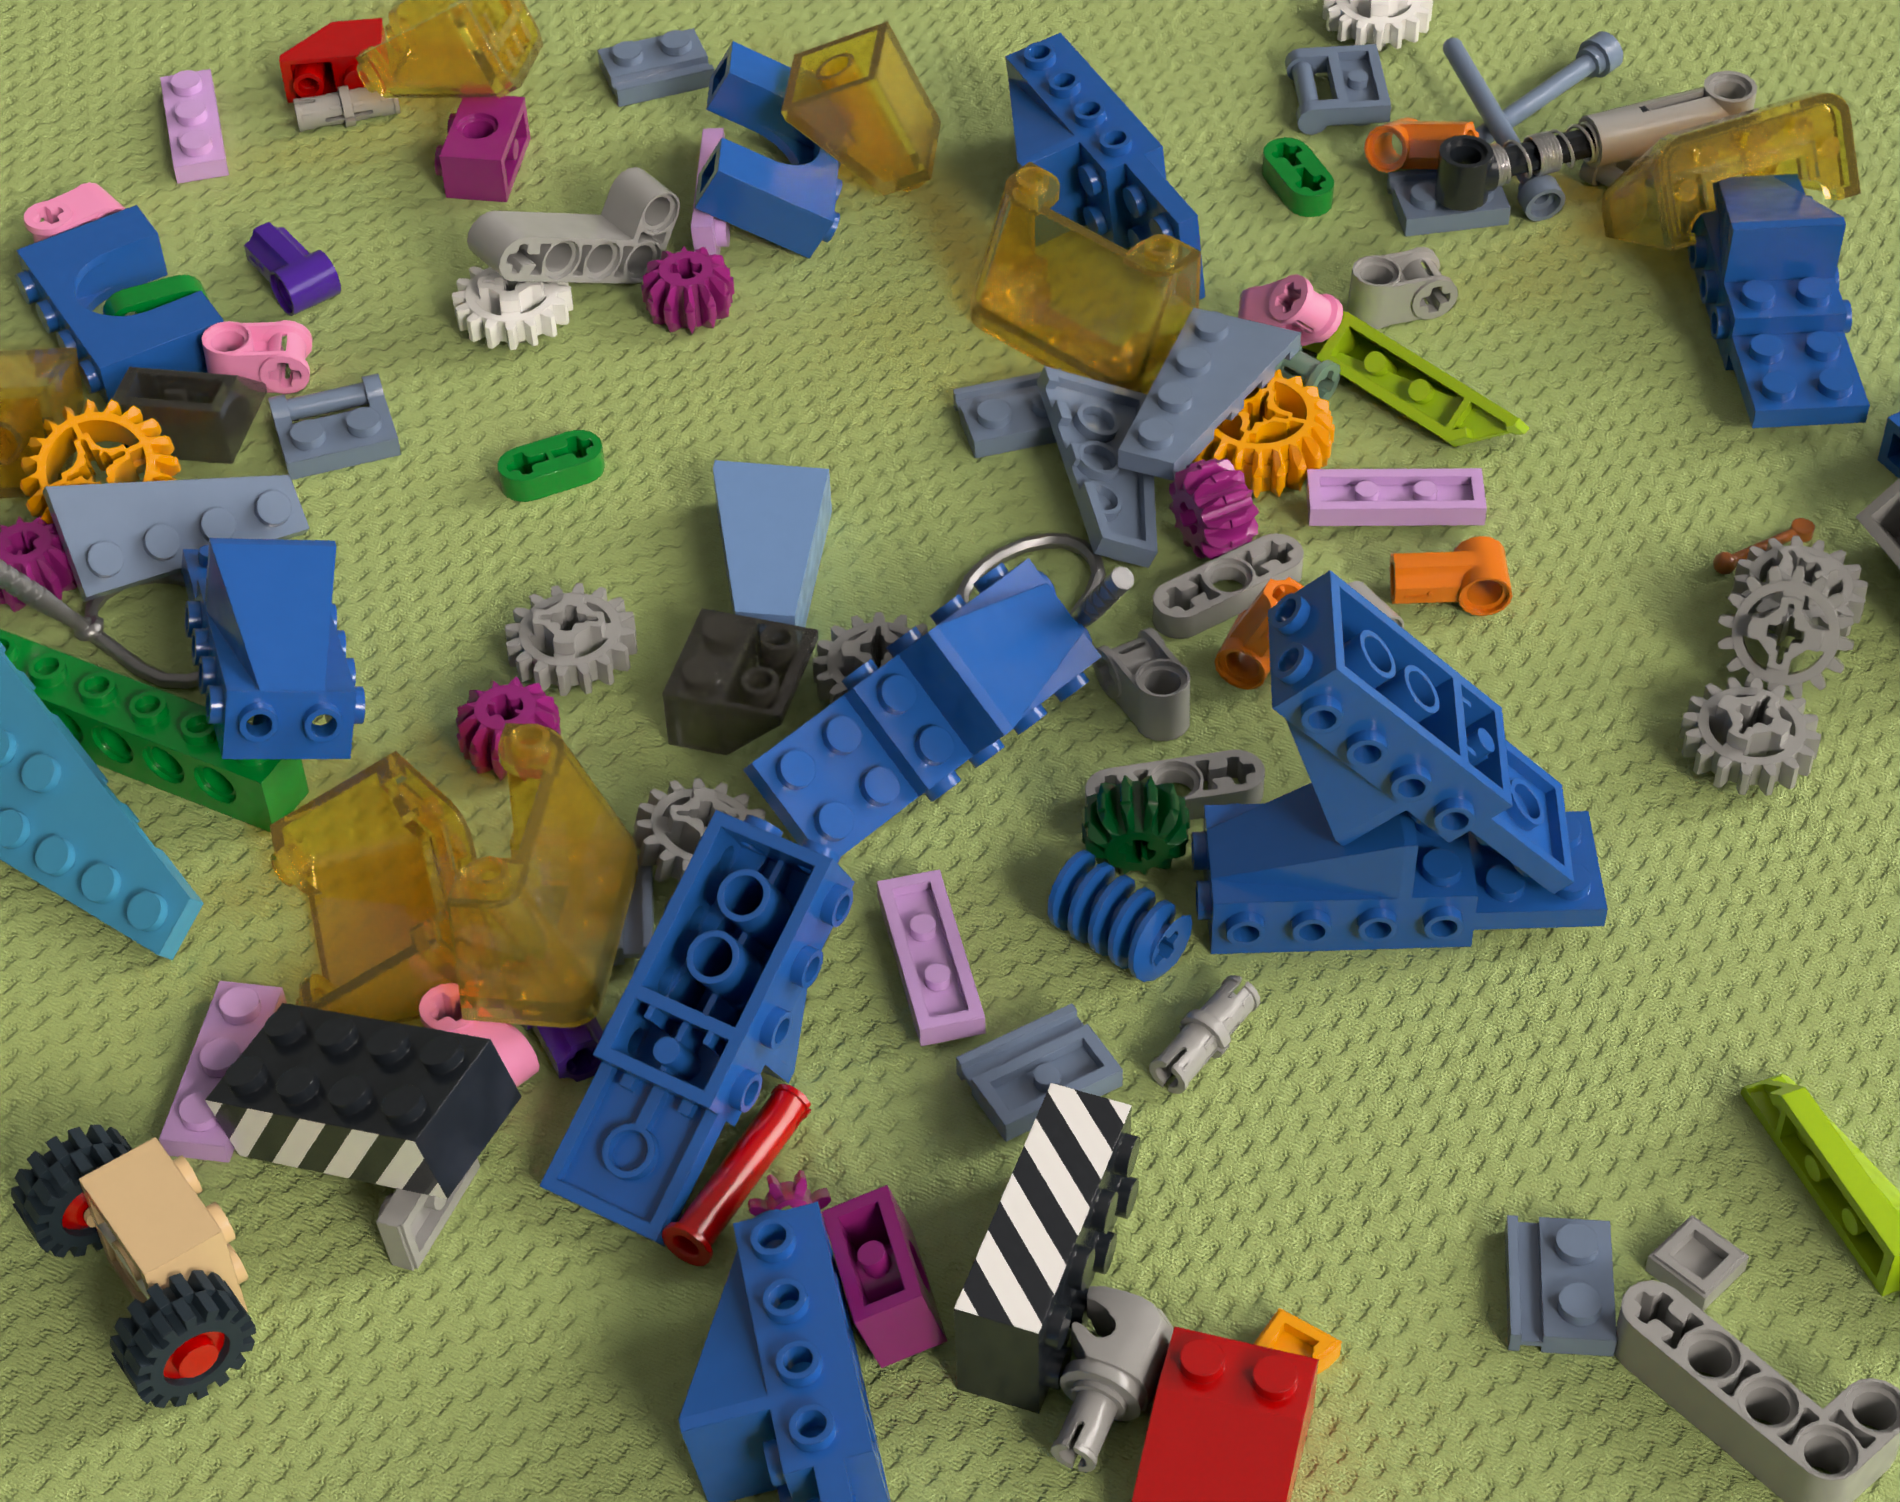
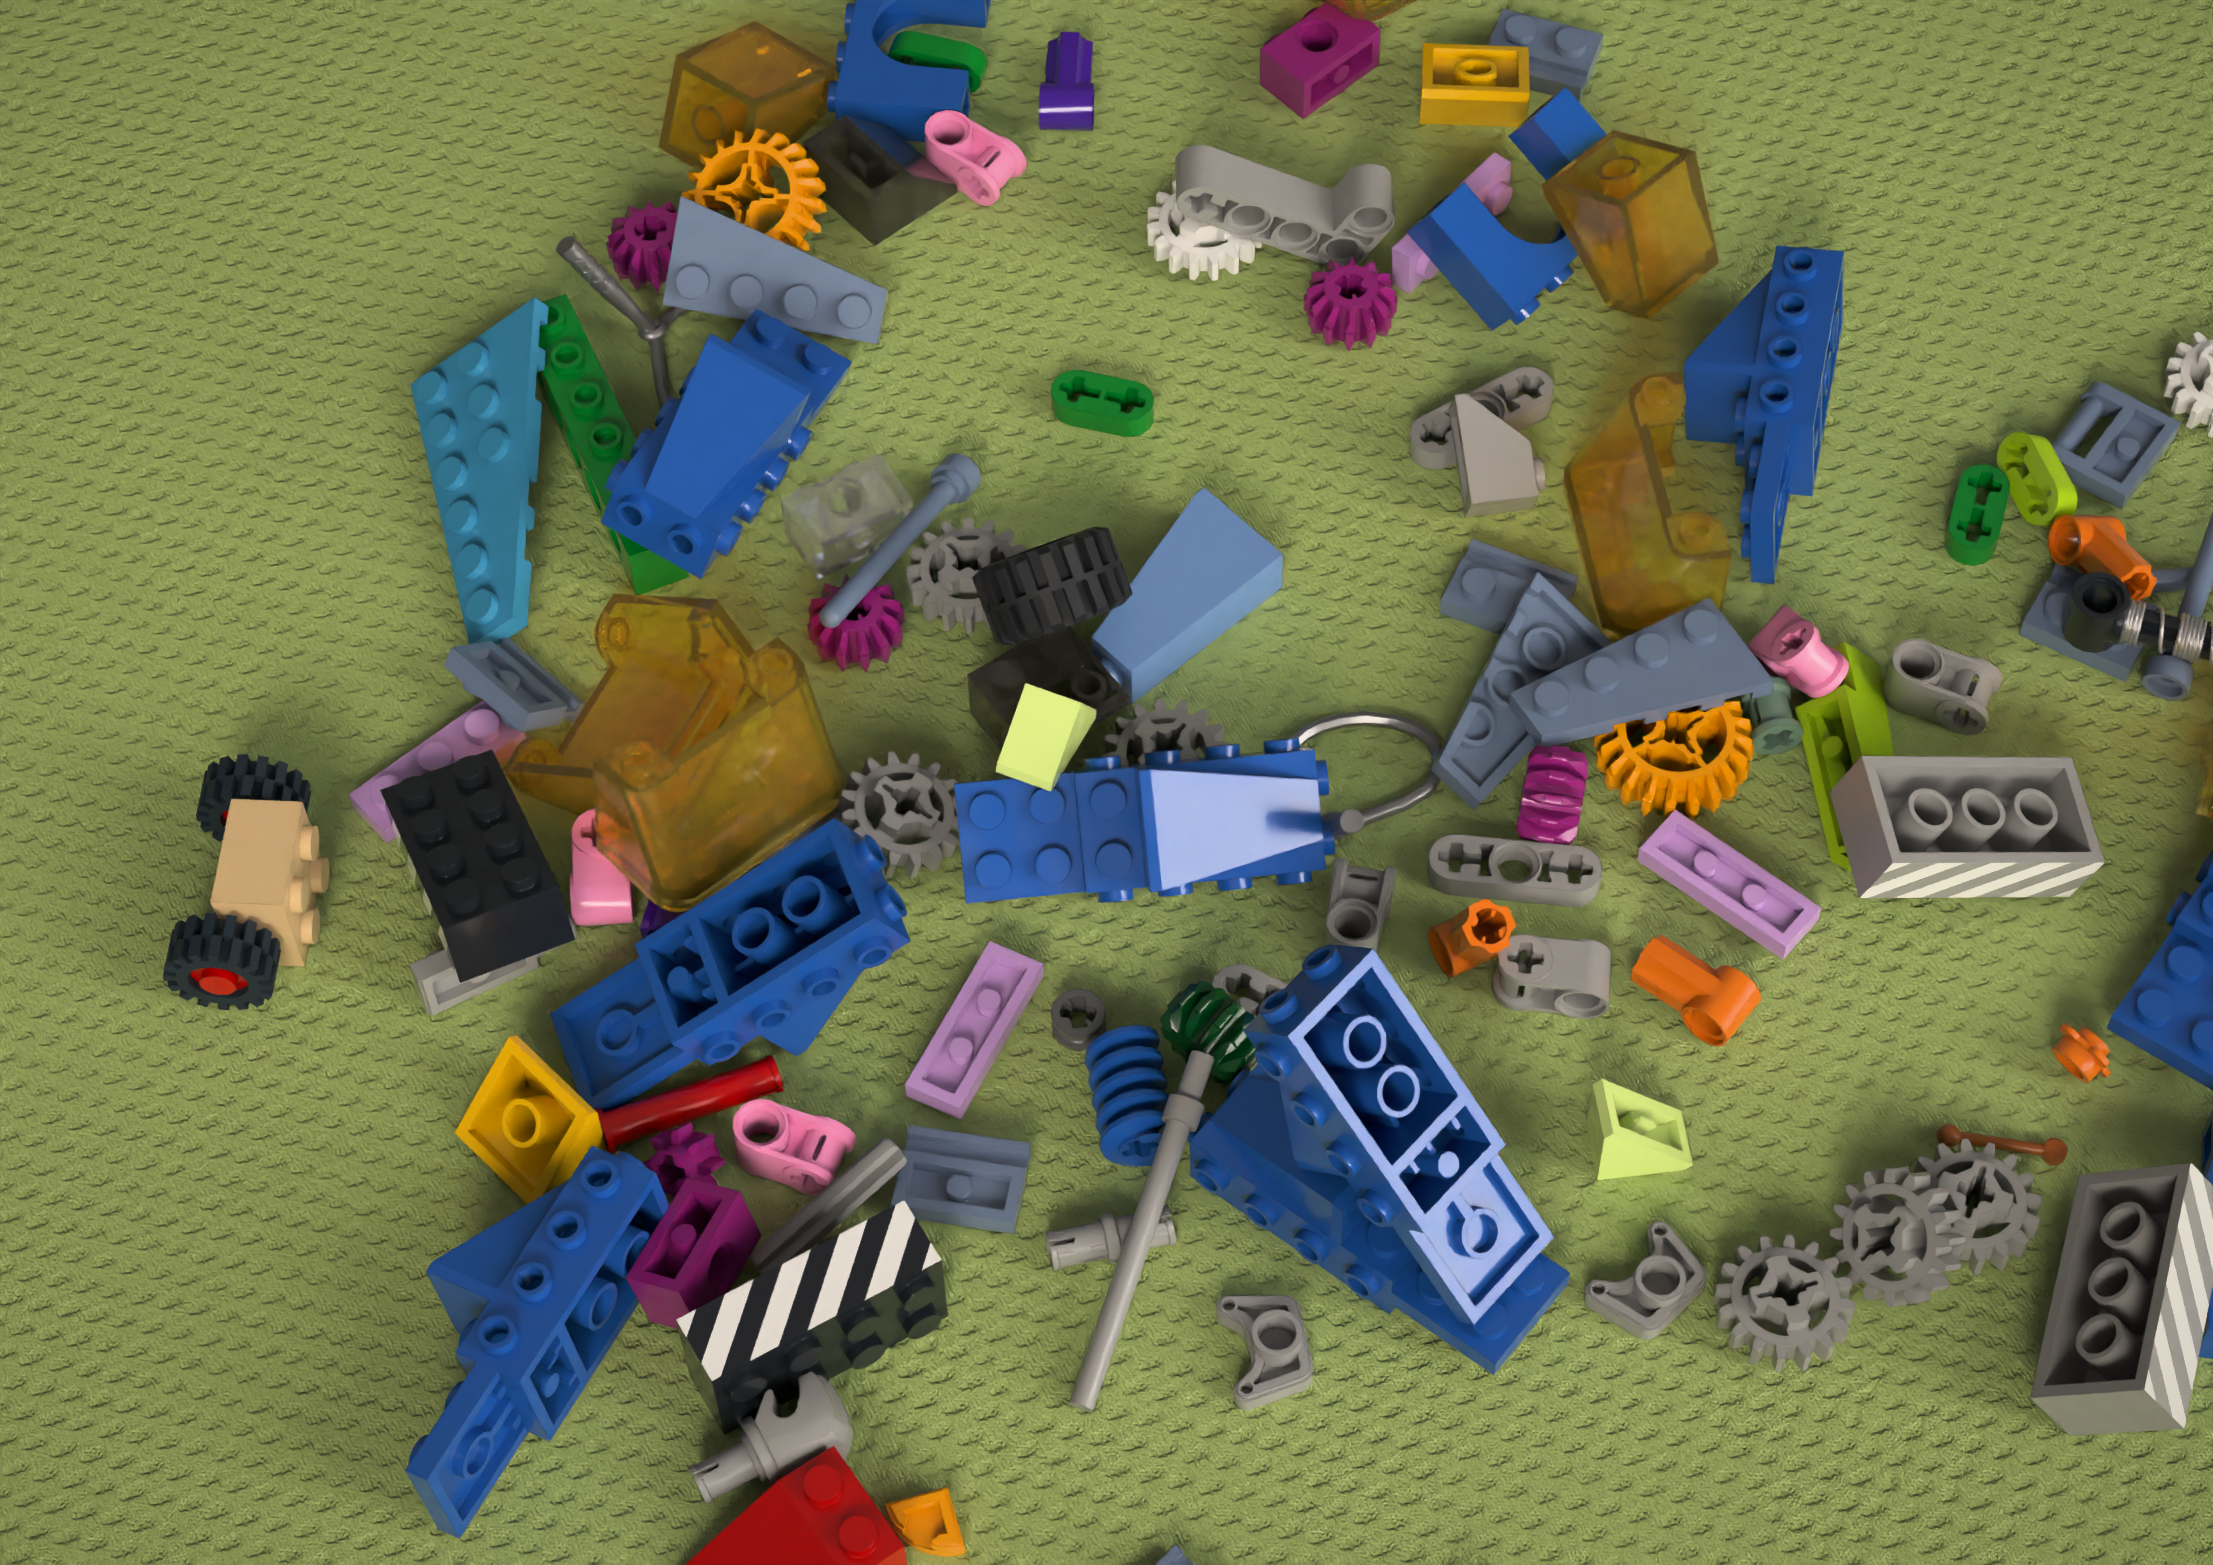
camera: 40 degrees right, 10 degrees up
(262, 956) = (513, 685): none -> sand blue plate
(336, 439) = (972, 272): sand blue plate -> none
(418, 657) = (828, 535): none -> clear brick
(486, 585) = (951, 483): none -> sand blue piece
(618, 1278) = (529, 1123): none -> yellow slope
(635, 104) = (1474, 85): none -> yellow slope
(678, 581) = (1052, 586): none -> black tyre
(794, 676) = (1043, 737): none -> yellowish green slope
(853, 356) = (1495, 397): none -> light grey beam
(868, 1144) = (804, 1146): none -> bright pink piece
(916, 323) = (1492, 461): none -> light grey slope
(955, 1167) = (831, 1206): none -> light grey axle
(1001, 912) = (1061, 1013): none -> dark grey bush
(1190, 891) = (1181, 1117): none -> light grey bar
(1322, 119) = (2043, 474): none -> lime beam
(1413, 1021) = (1274, 1344): none -> light grey piece
(1525, 697) = (1634, 1134): none -> yellowish green slope
(1534, 346) = (1965, 827): none -> light grey brick
(1645, 793) = (1655, 1290): none -> light grey piece
(1756, 452) = (2082, 1053): none -> orange plate

